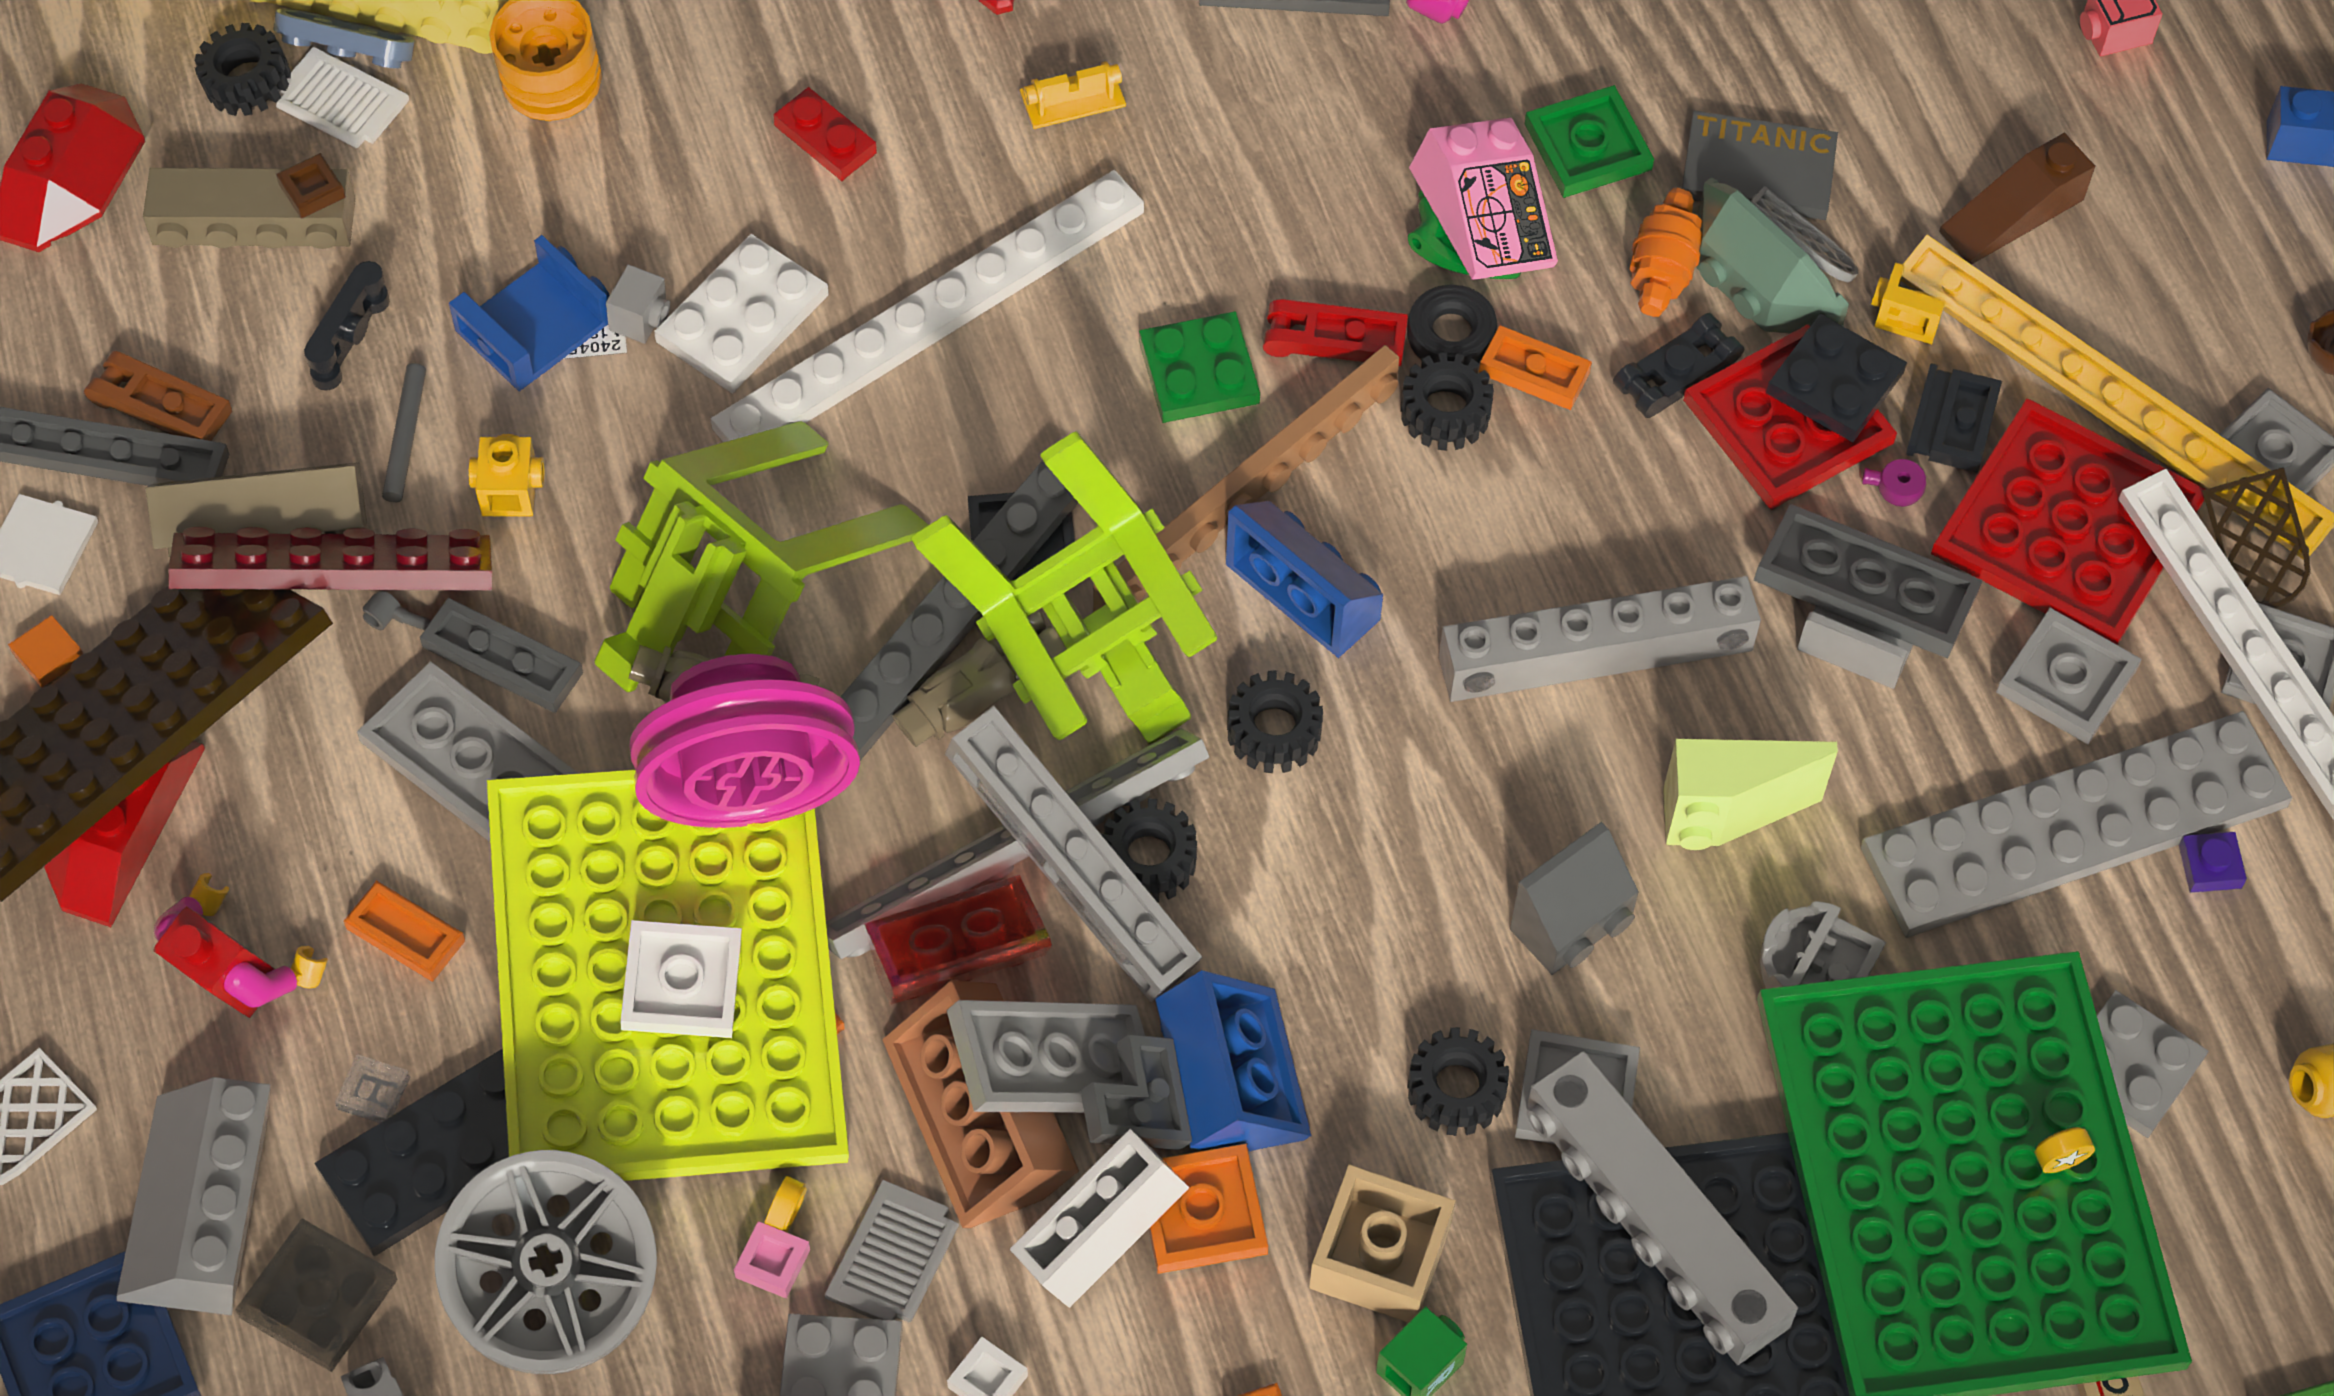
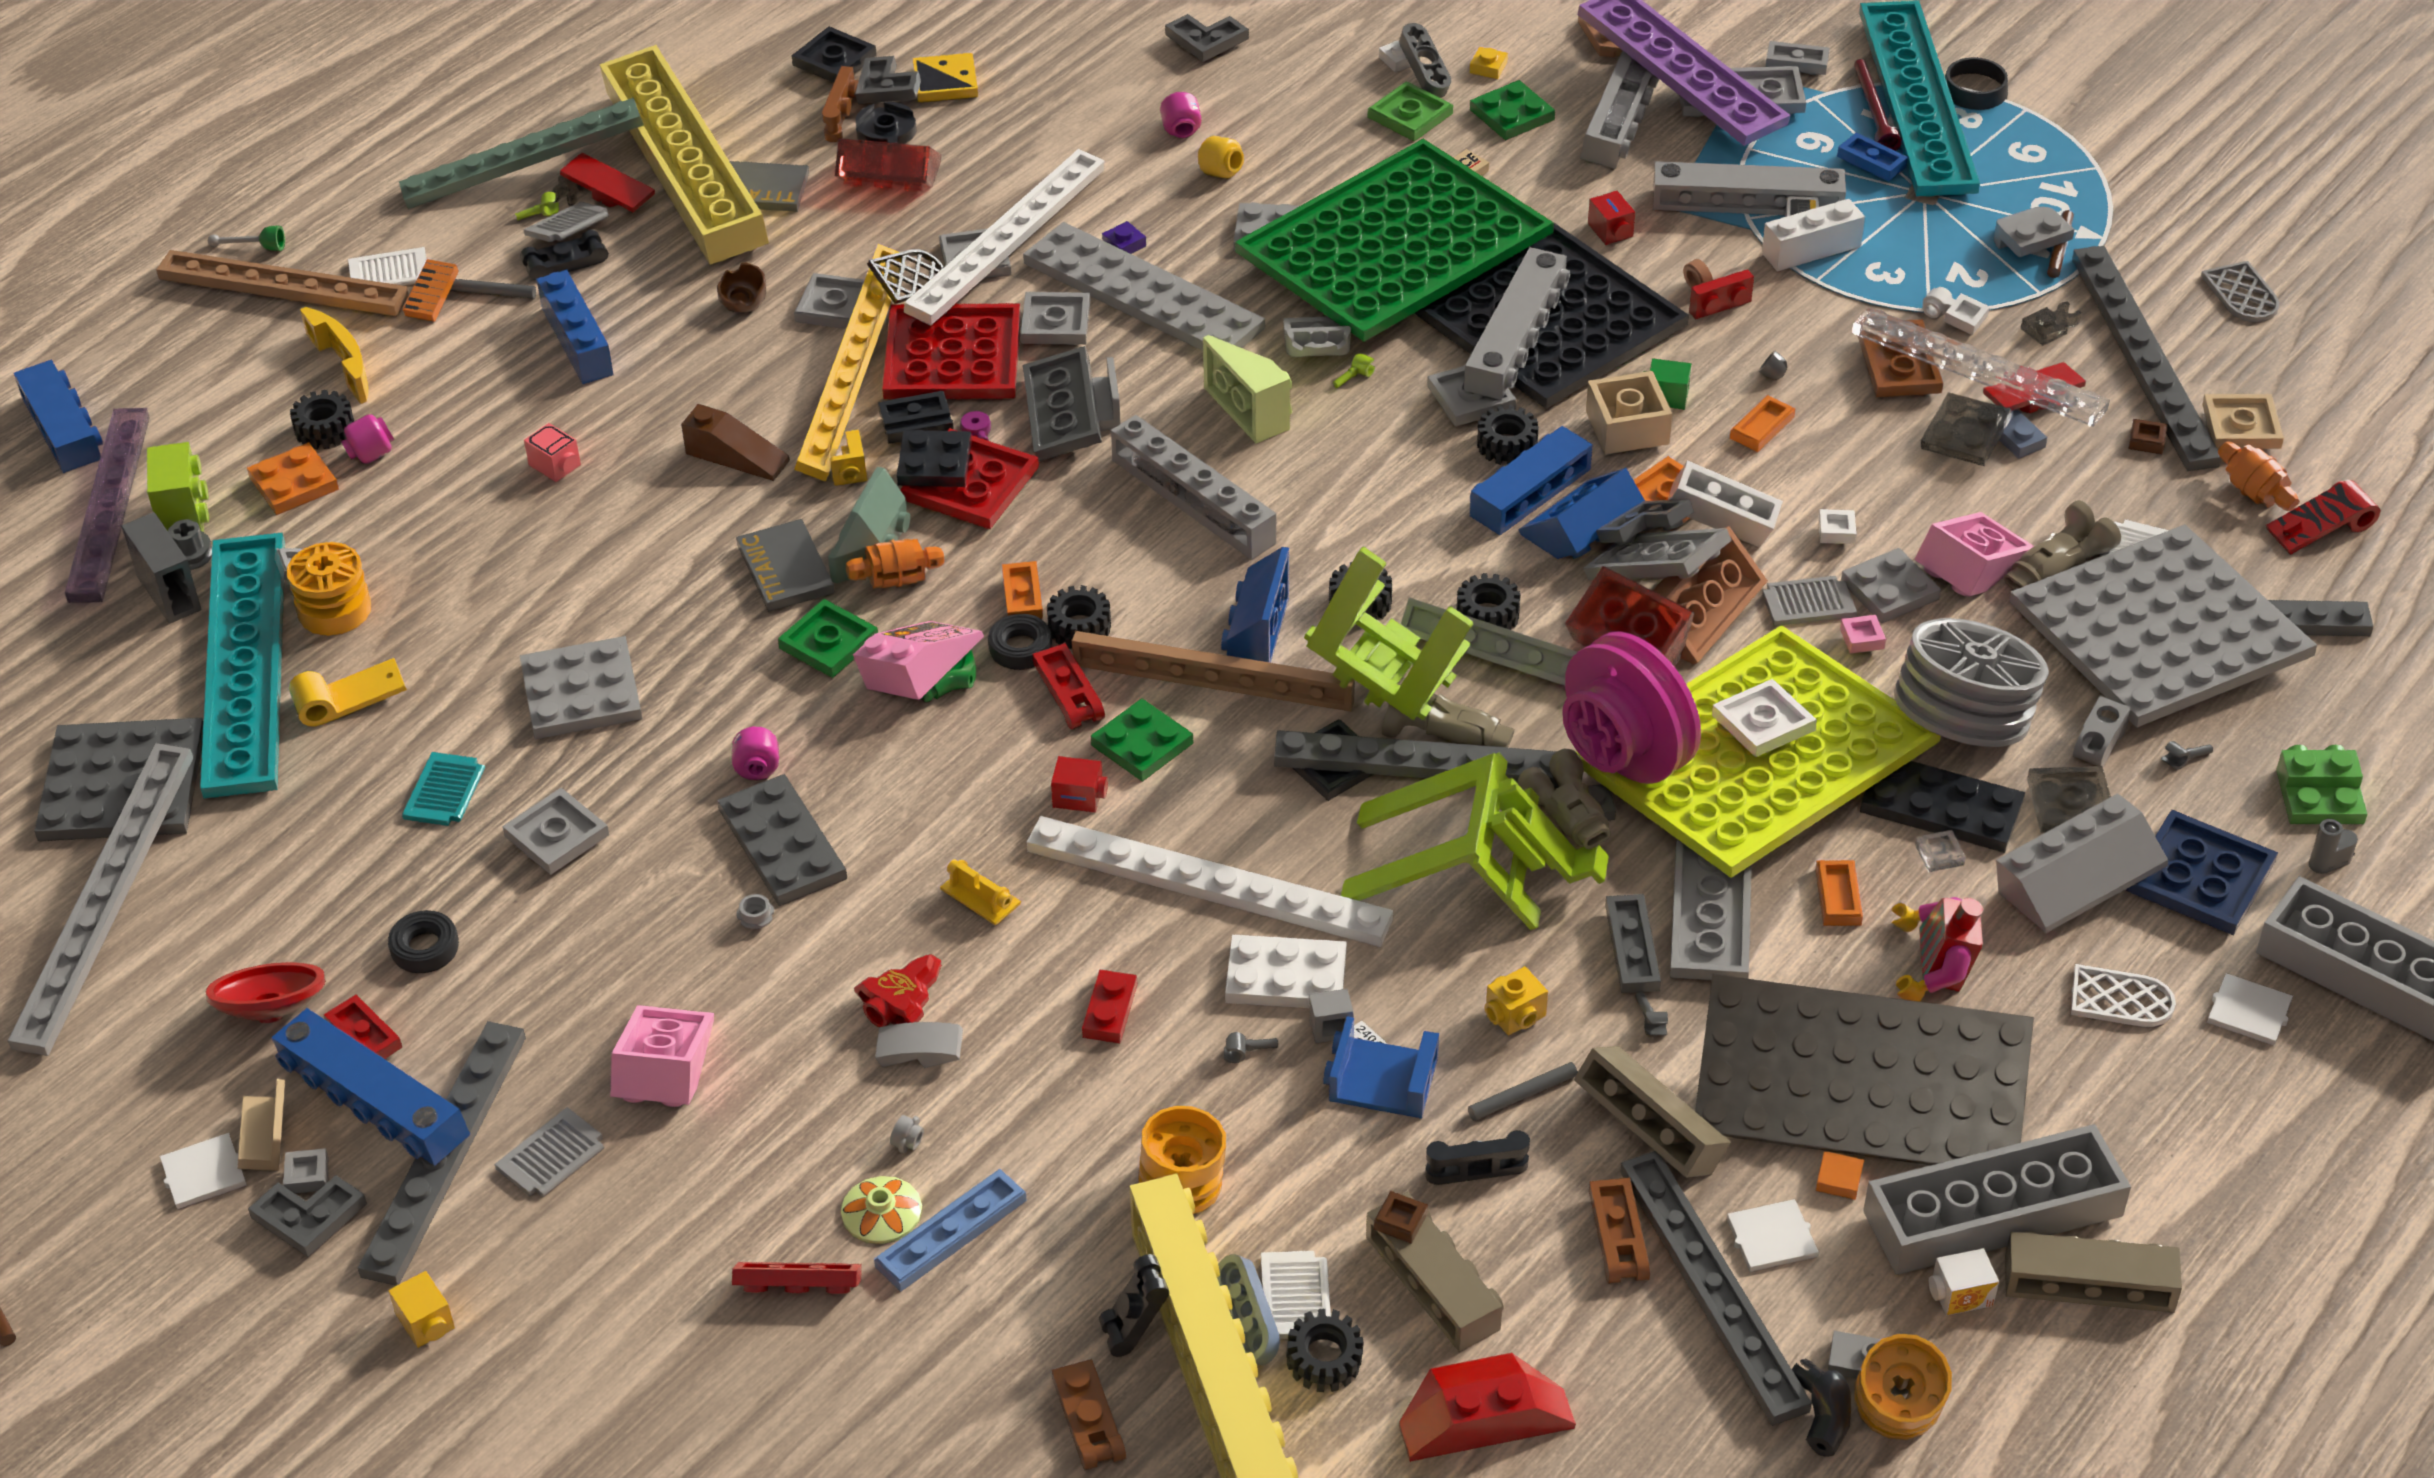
camera: 120 degrees left, 15 degrees down
(330, 561) = (1663, 1032): dark red plate -> none
(676, 211) = (1238, 1045): none -> dark grey hand
(786, 1204) = (1831, 640): yellow tile -> none
(1072, 854) = (1536, 599): light grey piece -> none
(1162, 254) = (1078, 784): none -> red brick
(1345, 1048) = (1530, 480): none -> blue brick
(1575, 901) = (1368, 429): dark grey slope -> none
(1678, 366) = (968, 539): black plate -> none
(1729, 997) = (1360, 364): none -> lime hand
(1837, 262) = (835, 513): light grey window -> none
(2064, 1150) = (1360, 196): yellow tile -> none

